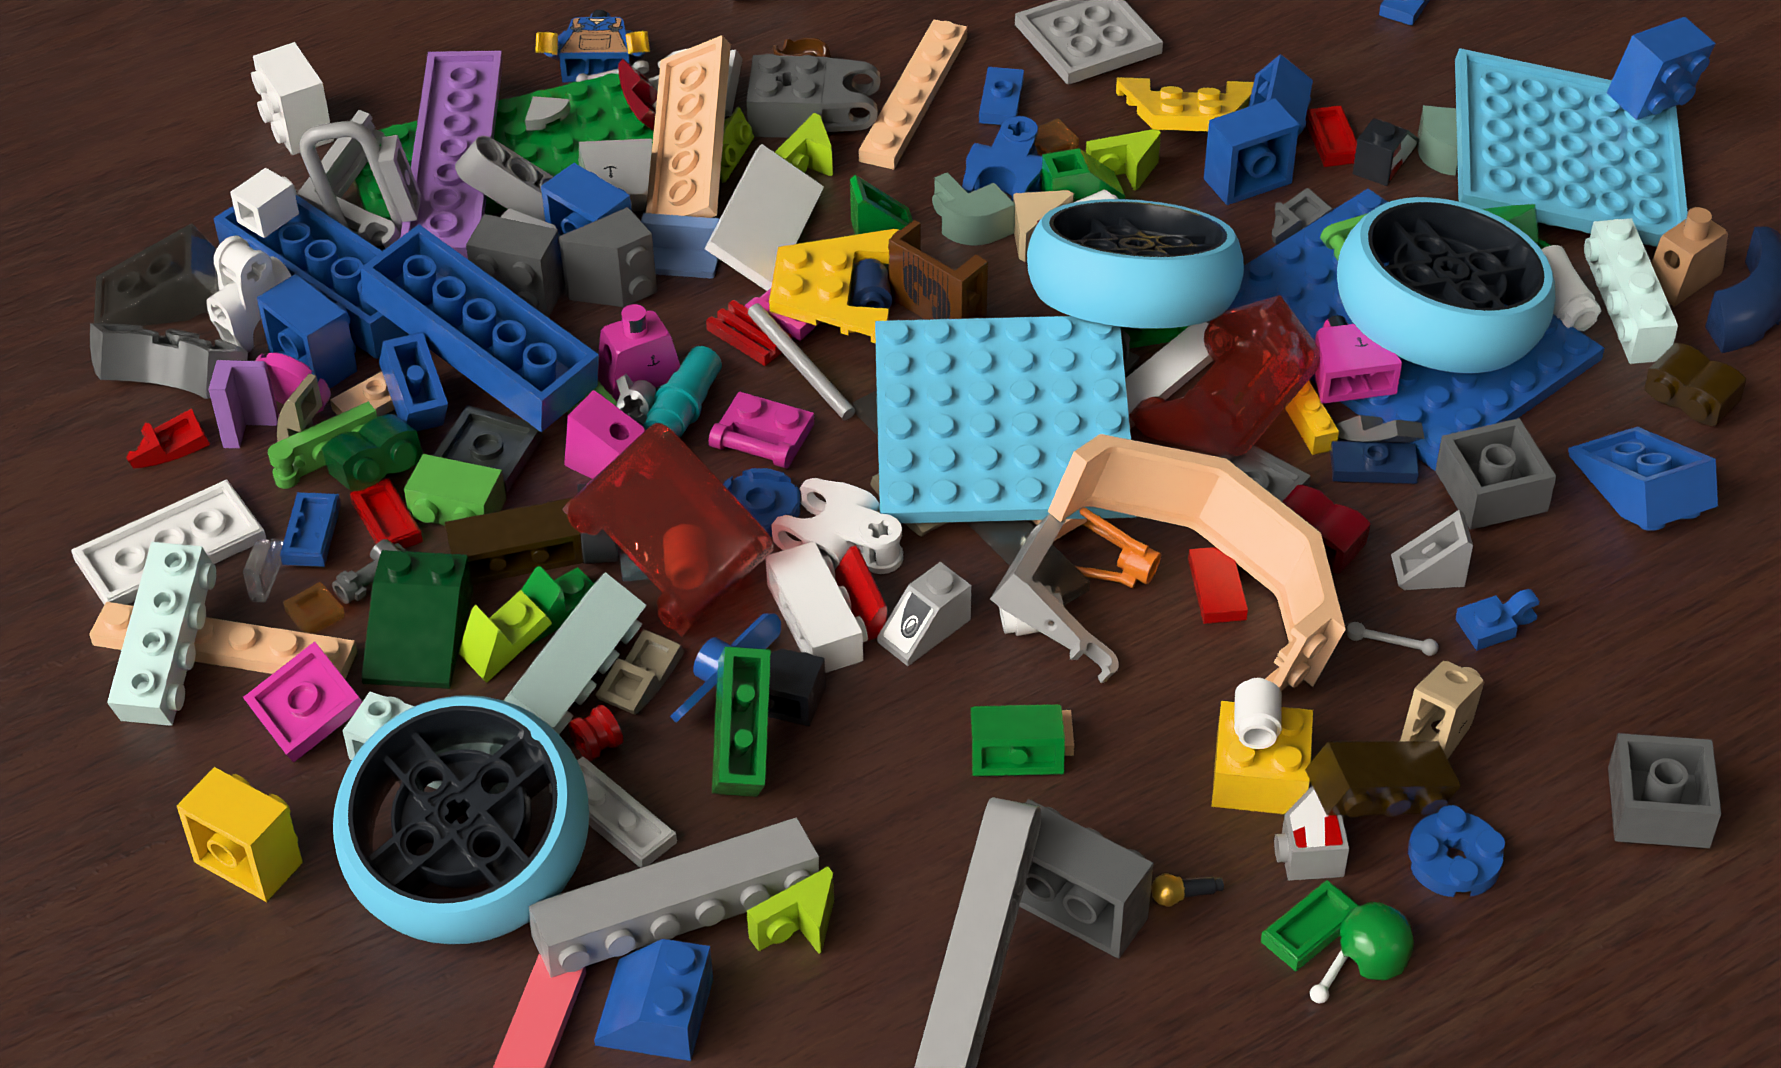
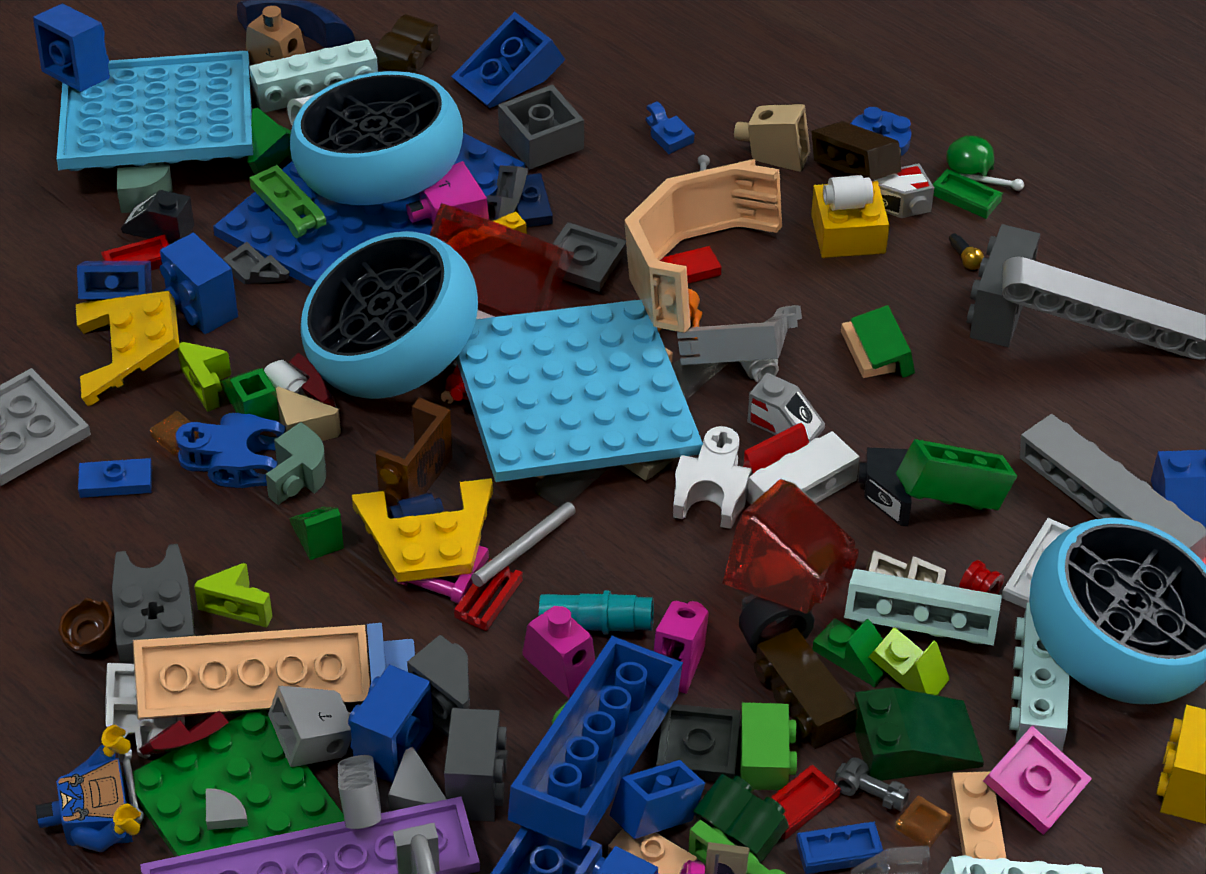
camera: 105 degrees left, 0 degrees up
(635, 397) = (621, 630): light grey piece -> none
(756, 636) = (887, 520): blue piece -> none
(762, 429) = (597, 556): dark pink plate -> none
(763, 215) = (344, 601): white tile -> none
(765, 495) = (692, 546): blue tile -> none
(800, 907) = (1089, 423): lime slope -> none
(913, 94) = (103, 540): light nougat plate -> none
(1341, 528) = (613, 208): dark red brick -> none
(1436, 557) = (626, 152): light grey slope -> none
(1664, 790) = (803, 39): dark grey brick -> none

